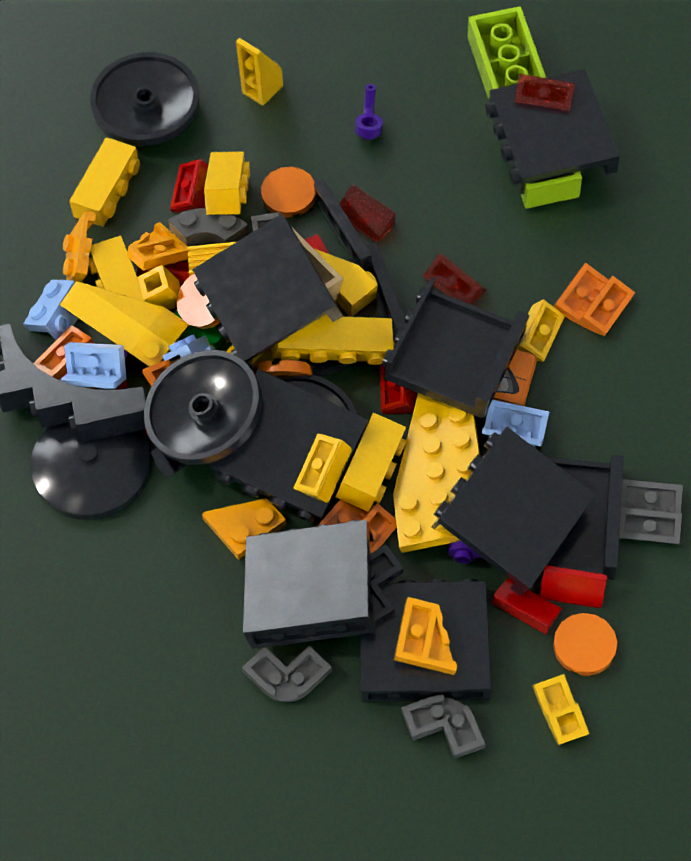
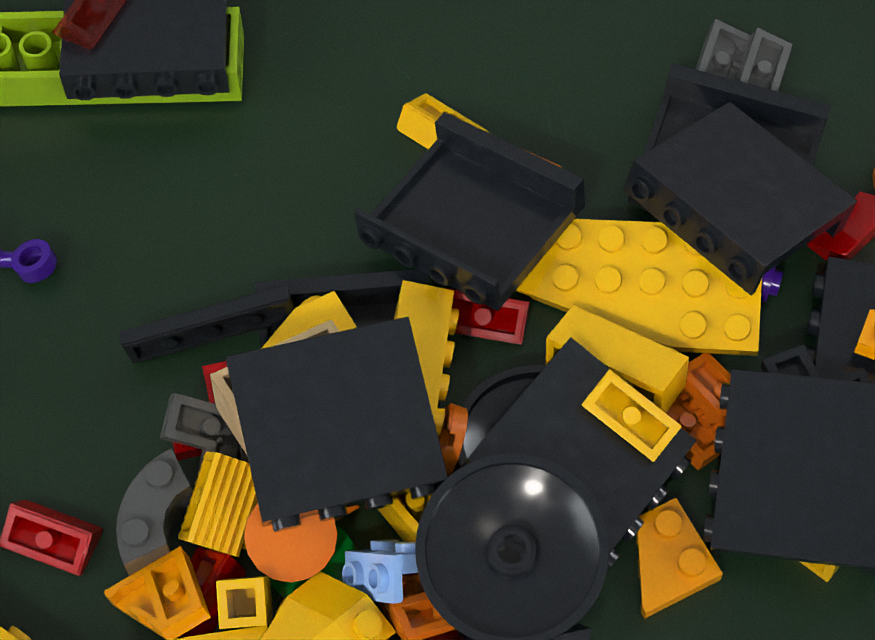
camera: 80 degrees left, 0 degrees up
(226, 183) = (83, 466): yellow brick -> none
(288, 191) = (109, 395): orange tile -> none
(367, 213) = (186, 290): clear red slope -> none
(454, 280) = (333, 210): clear red slope -> none
(524, 421) = (602, 174): light blue bracket -> none
(573, 586) = (841, 156): red slope -> none
(594, 300) = (412, 54): orange slope -> none

